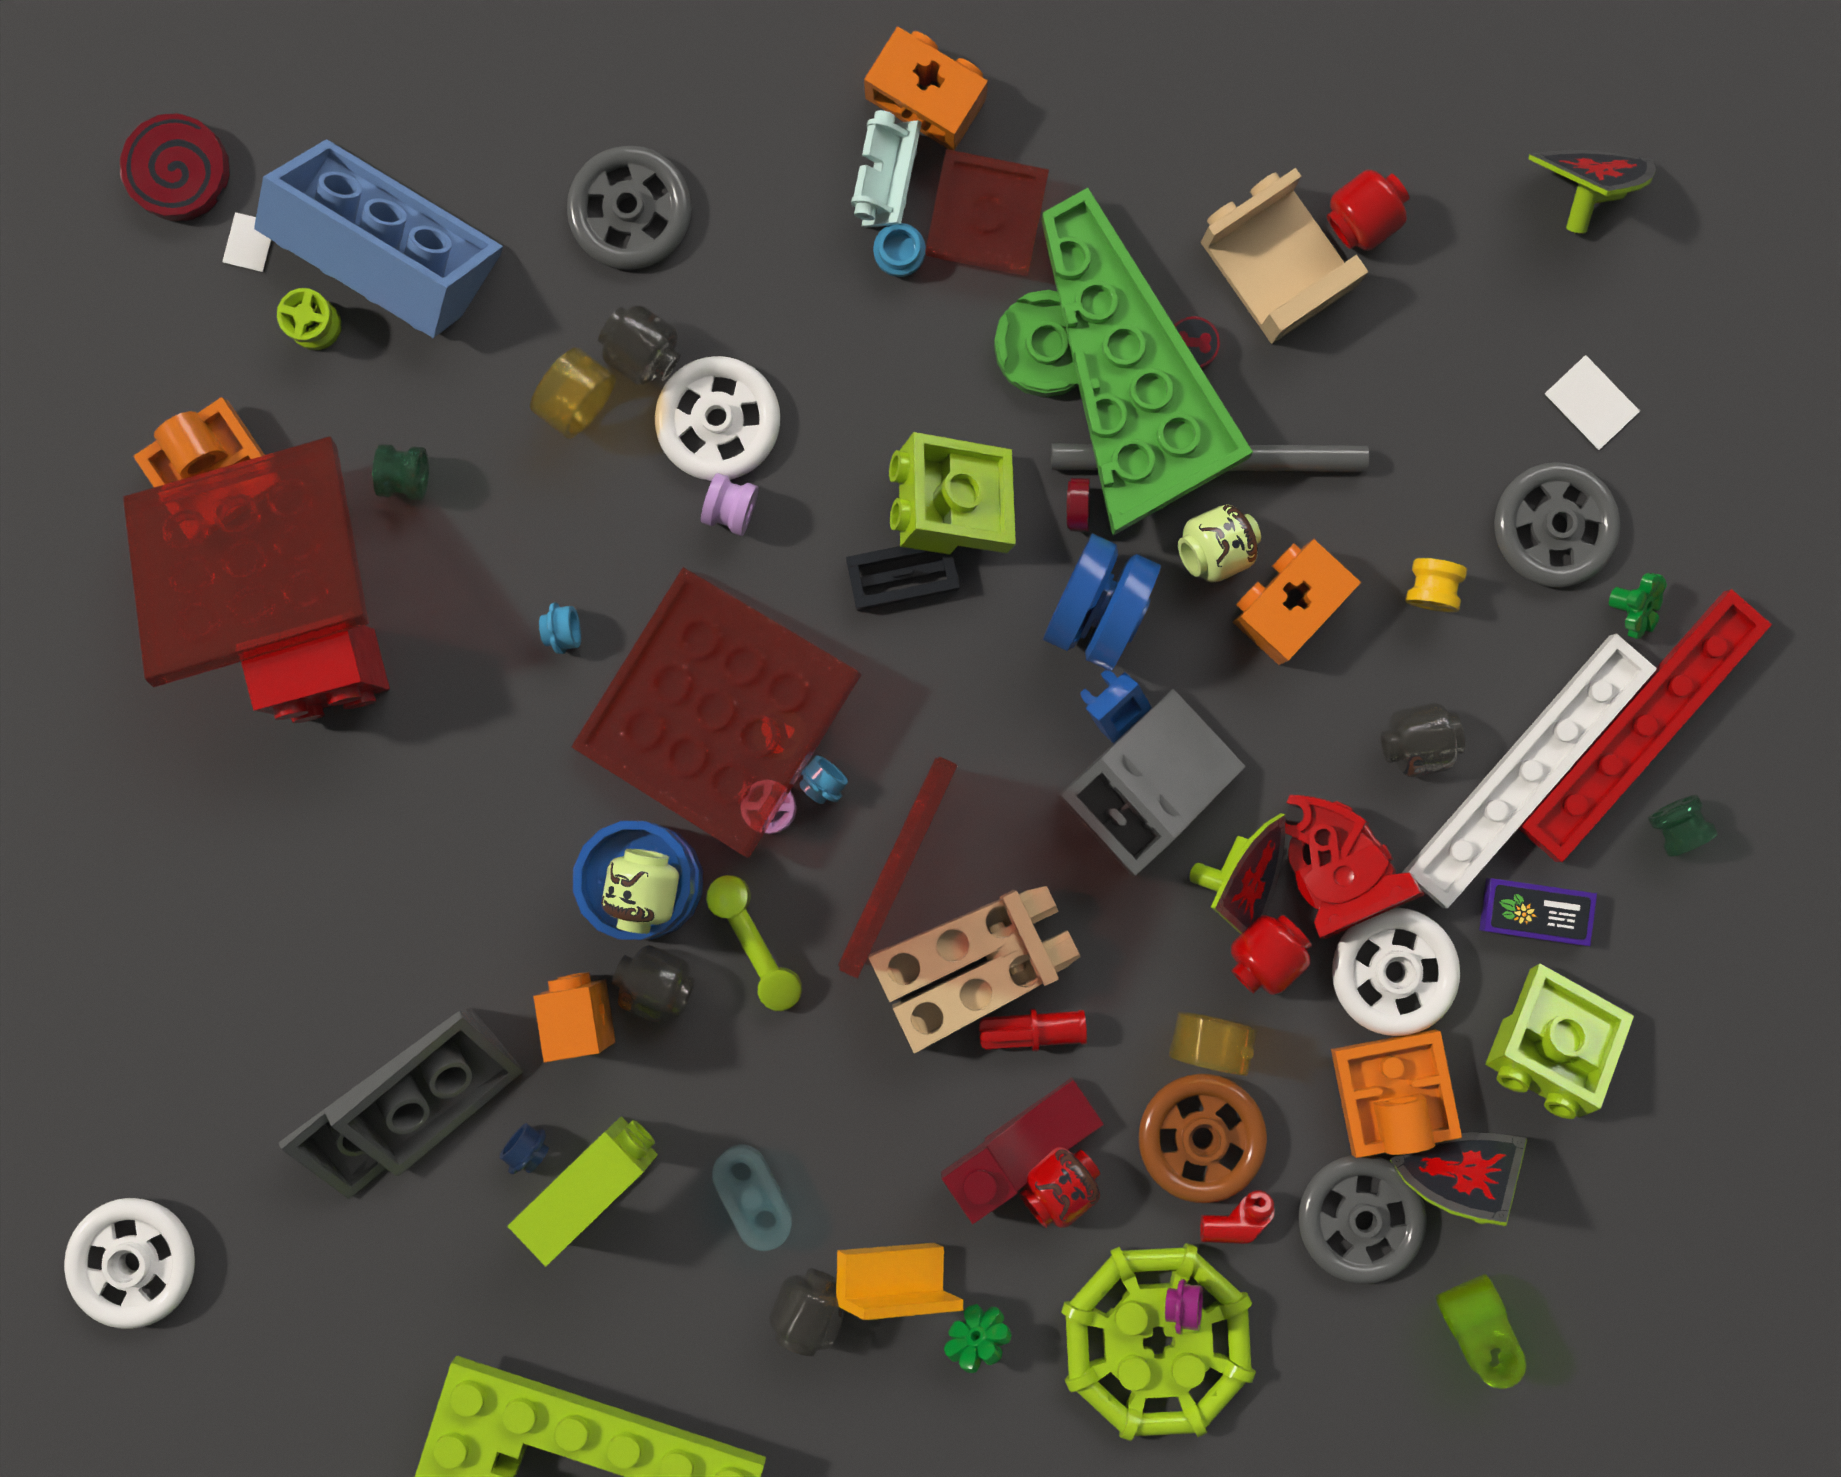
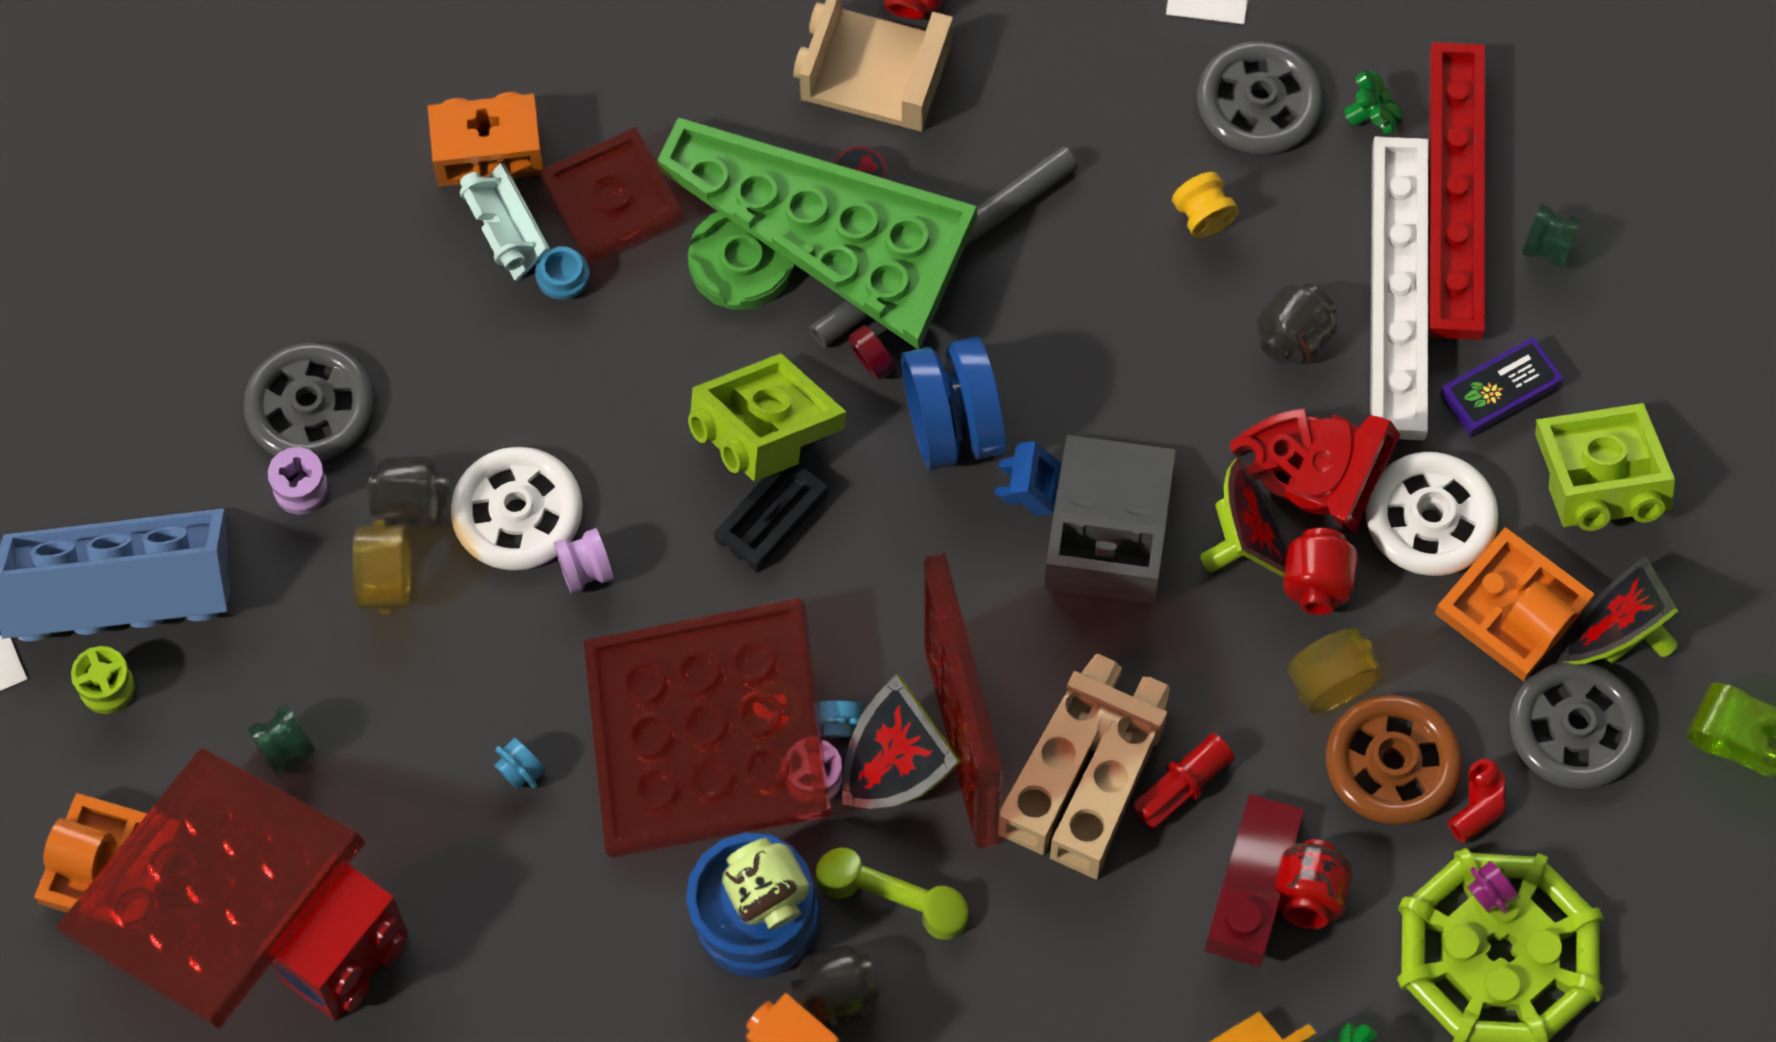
camera: 35 degrees left, 20 degrees down
(576, 278) = (304, 492): none -> lavender wheel
(834, 847) = (894, 752): none -> shield
(1219, 543) = (1008, 298): yellowish green head -> none
(1323, 589) = (1105, 268): orange brick -> none

